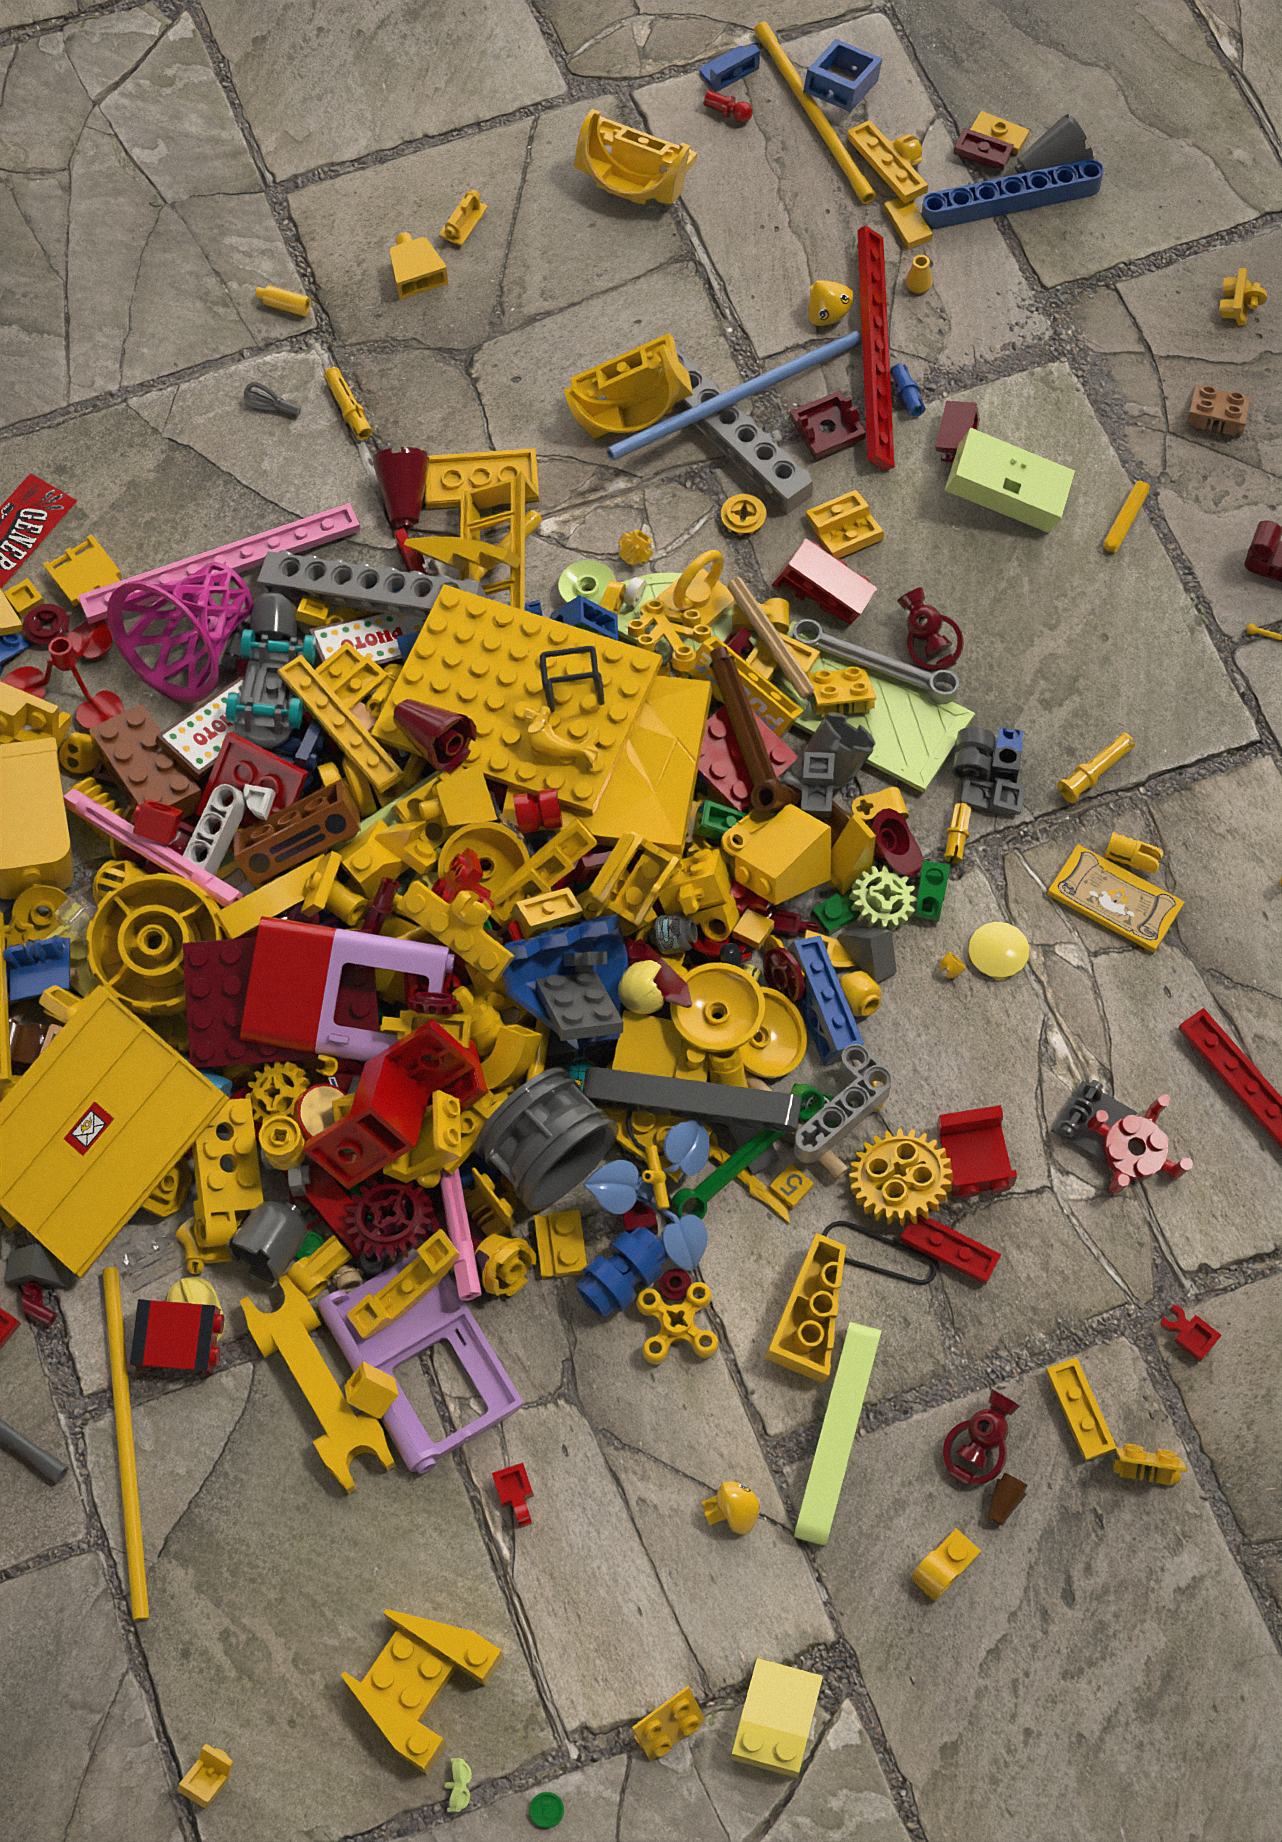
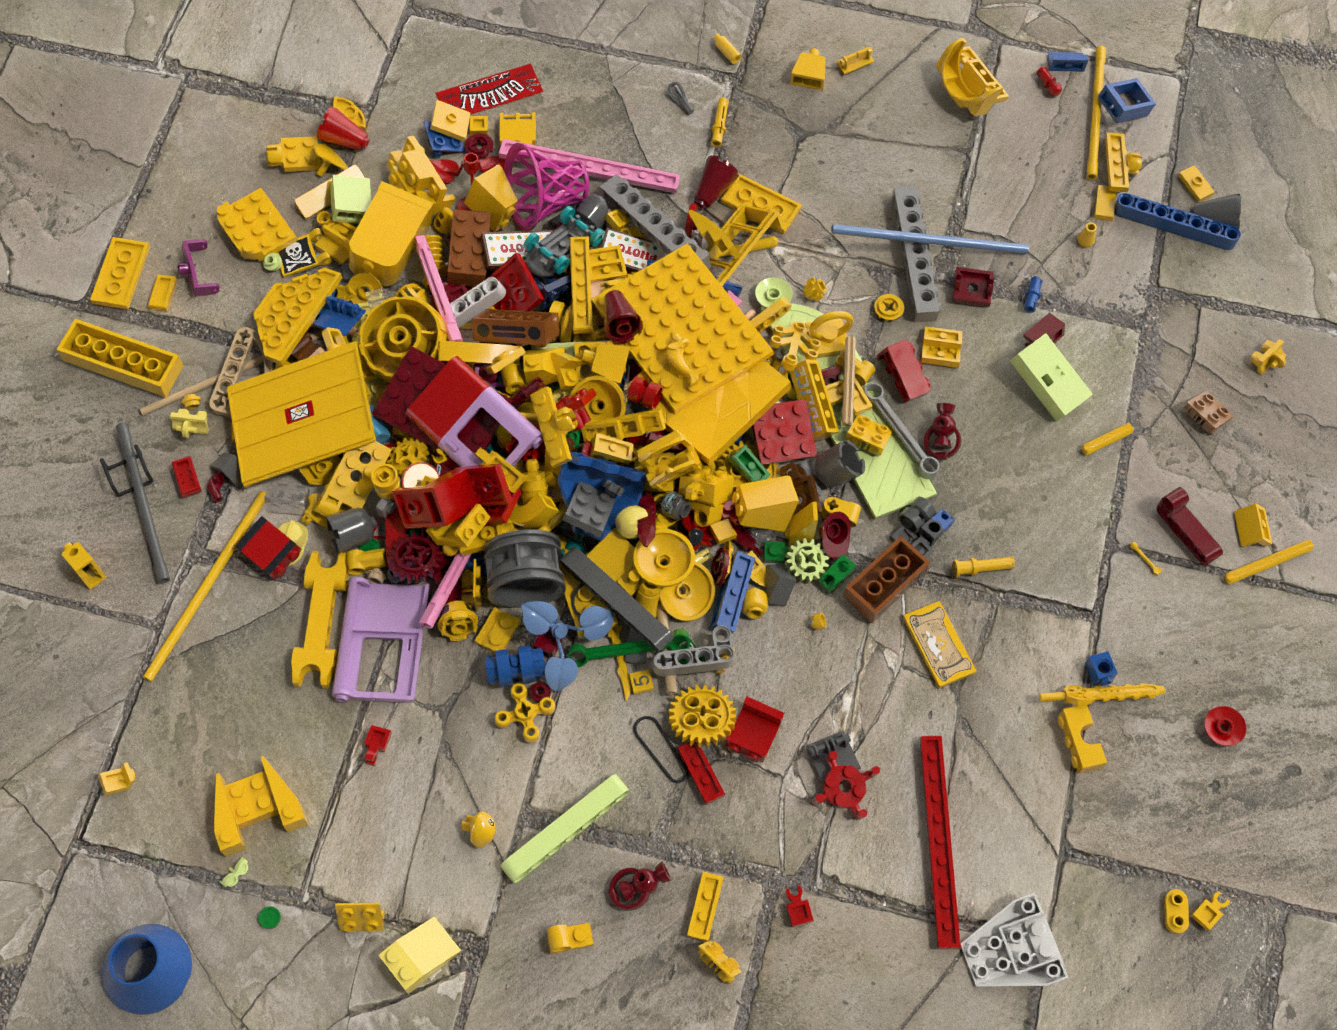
camera: 30 degrees right, 0 degrees up
(126, 678) = (494, 195): none -> yellow slope
(157, 821) = (449, 277): red brick -> none
(259, 800) = (509, 298): white tile -> none
(371, 1390) = (341, 640): yellow panel -> none
(406, 1288) = (398, 601): yellow slope -> none
(433, 1003) = (509, 457): dark red gear -> none
(547, 683) = (693, 339): black piece -> none
(588, 616) = (753, 310): blue torso -> none
(634, 388) = (879, 201): yellow piece -> none
(635, 591) = (795, 312): white tile -> none
(656, 1177) = (568, 627): yellow piece -> none
(744, 831) = (755, 474): yellow piece -> none
(748, 735) = (782, 463): reddish brown piece -> none
(807, 1323) = (595, 755): yellow wedge -> none
(818, 784) = (812, 475): dark grey slope -> none
(828, 302) = (1023, 220): yellow piece -> none
(875, 349) = (1031, 261): red plate -> none
(957, 833) = (876, 550): yellow axle -> none
(983, 149) = (1179, 187): dark red plate -> none
(997, 858) = (886, 579): none -> dark orange brick
(998, 950) = (851, 630): light yellow dish -> none
(1006, 1497) = (628, 925): reddish brown cone -> none
(1133, 853) = (967, 625): yellow hinge -> none

